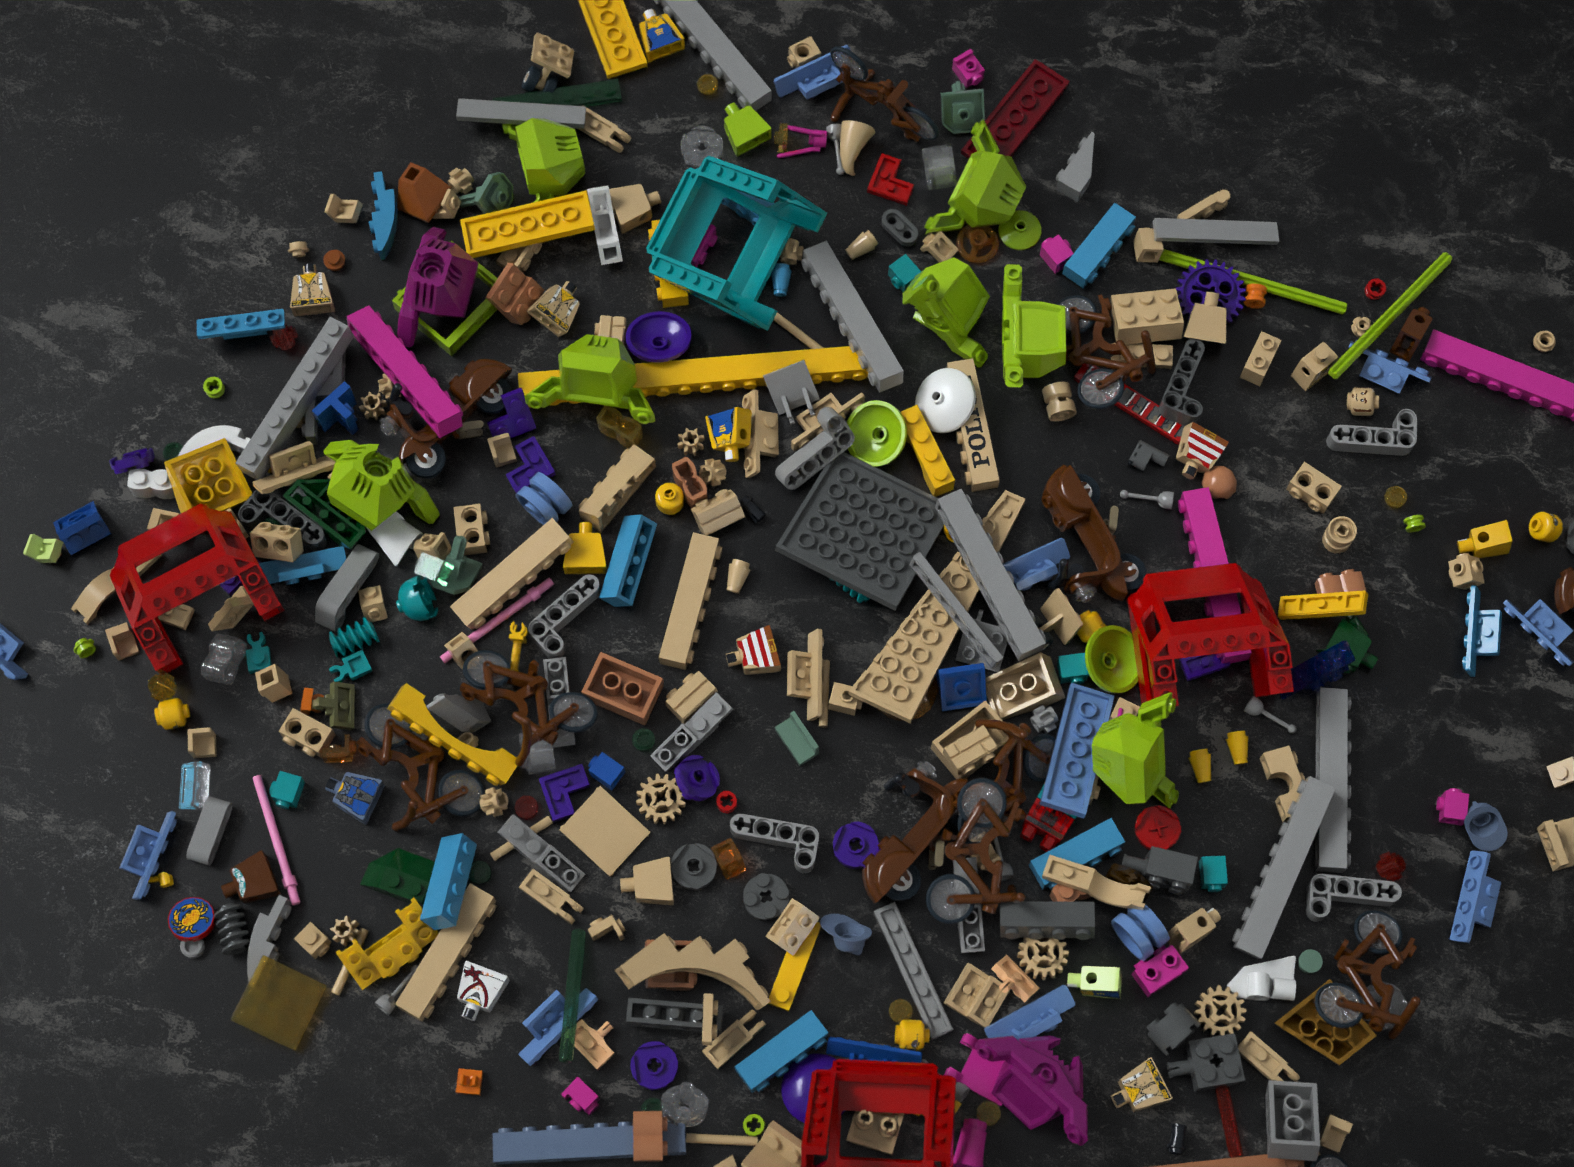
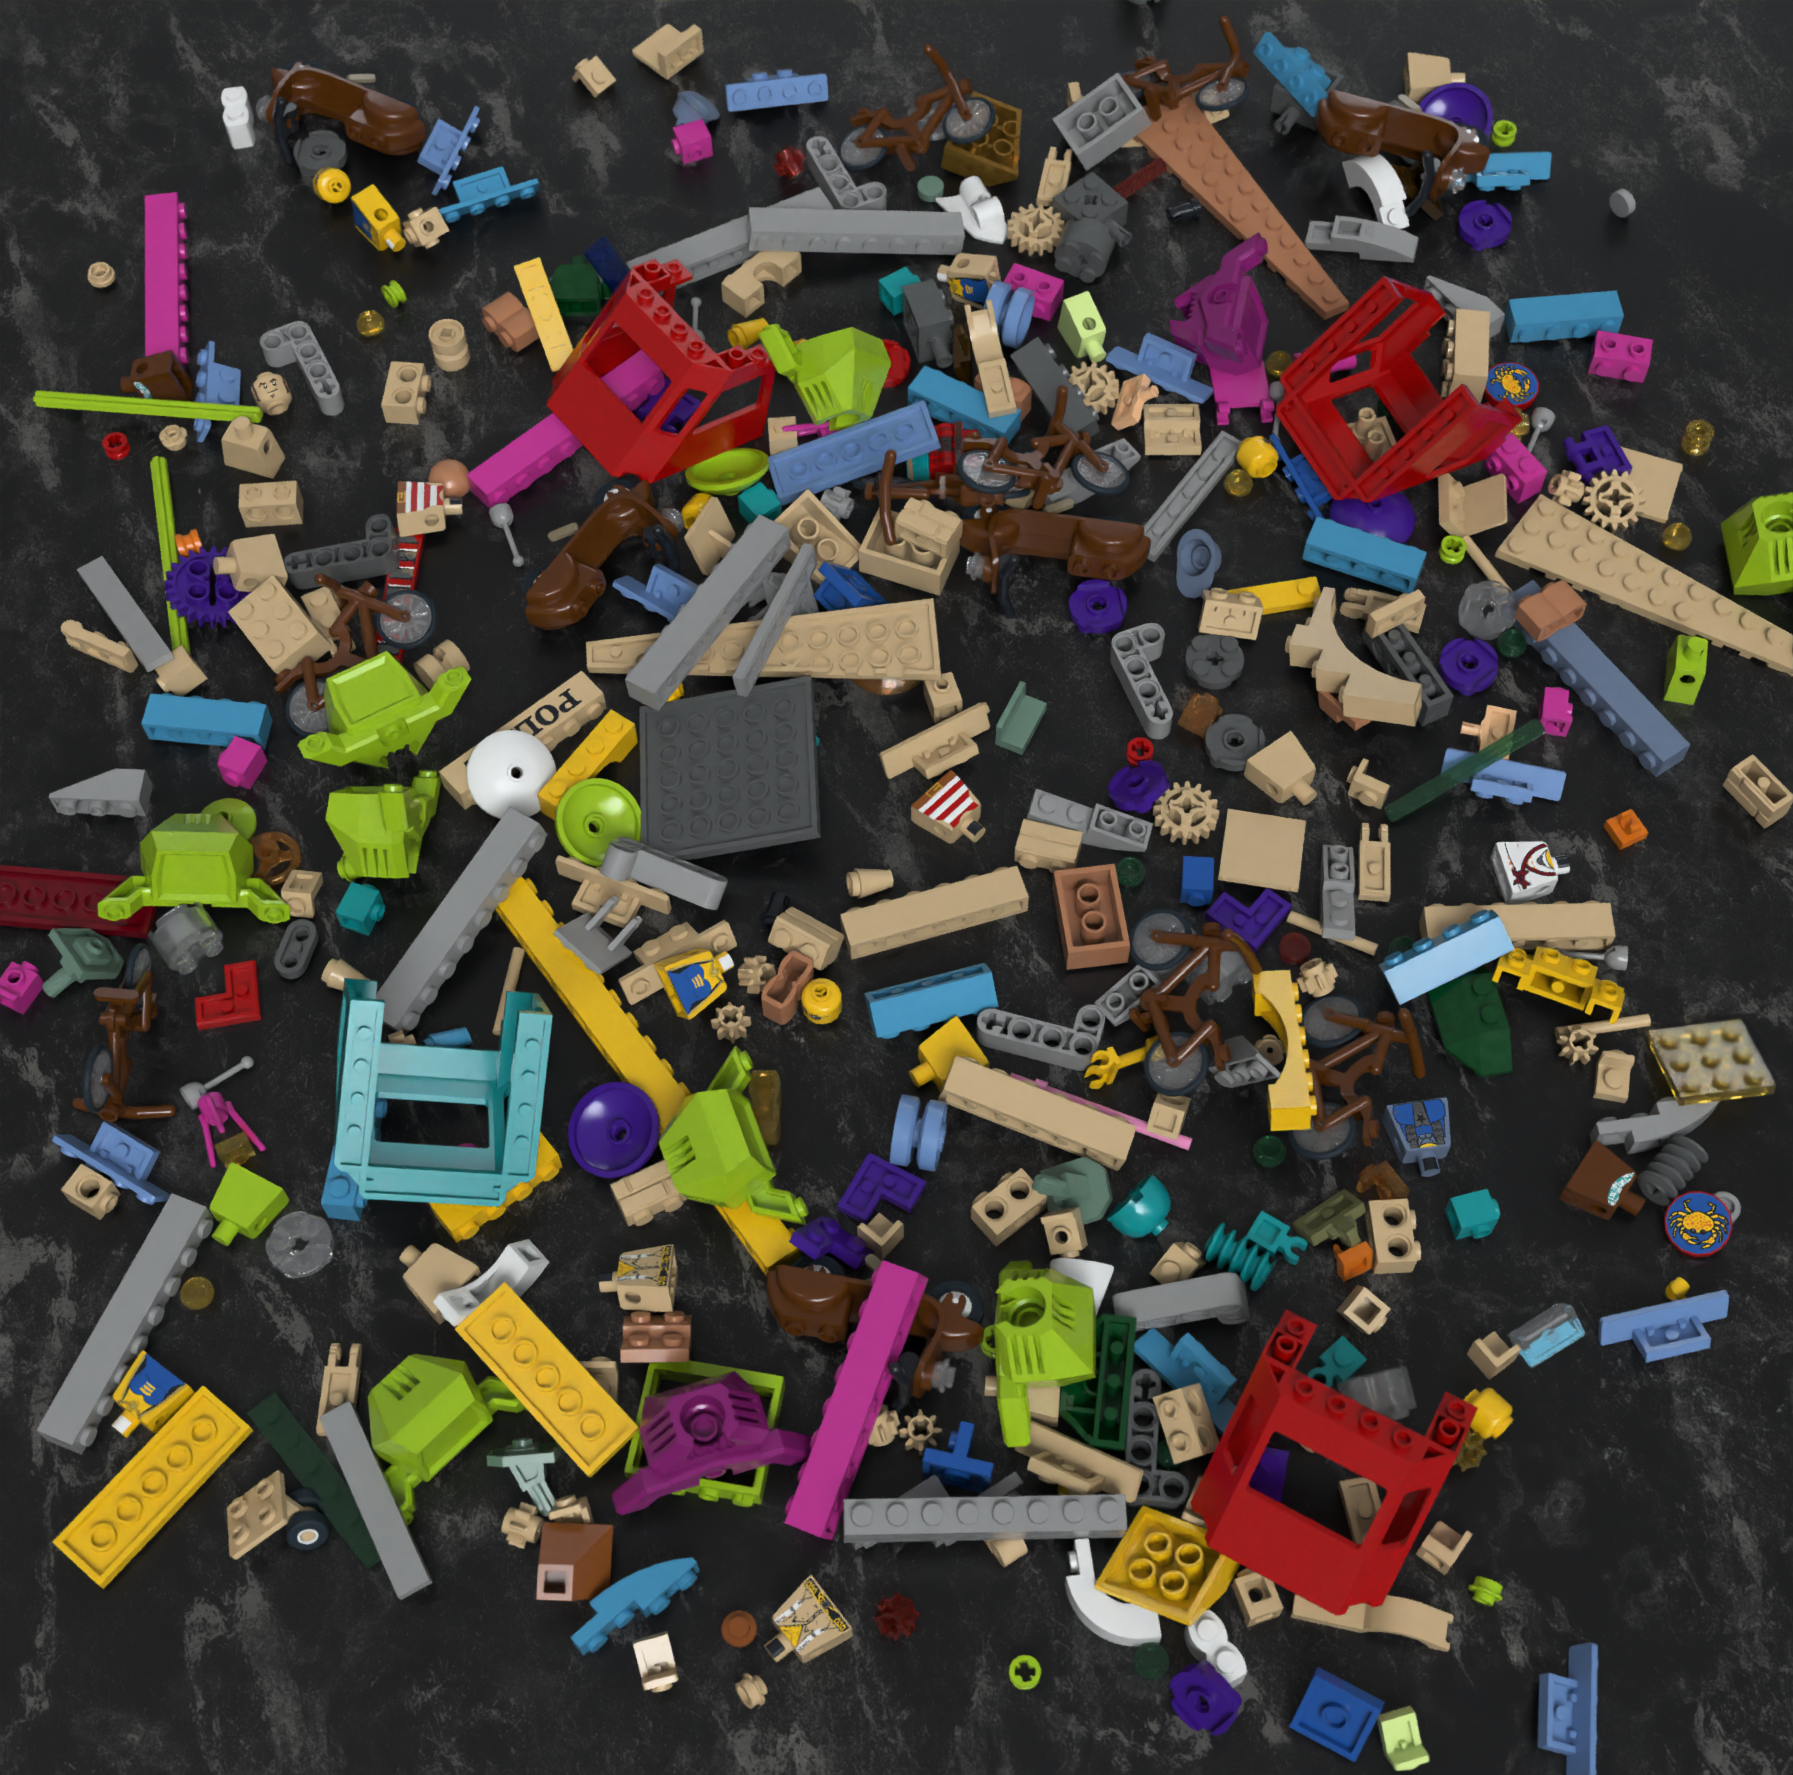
camera: 120 degrees left, 10 degrees down
(209, 830) = (1586, 1273): light grey beam -> none
(241, 324) = (919, 1678): dark azure bracket -> none
(289, 880) = (1568, 1148): bright pink bar -> none
(433, 569) = (1097, 1196): clear green brick -> none
(616, 488) = (846, 1068): tan wedge -> none
(852, 140) = (202, 1058): tan hat -> none
(1142, 1088) = (1157, 255): torso -> none
(1144, 453) = (458, 562): dark grey piece -> none

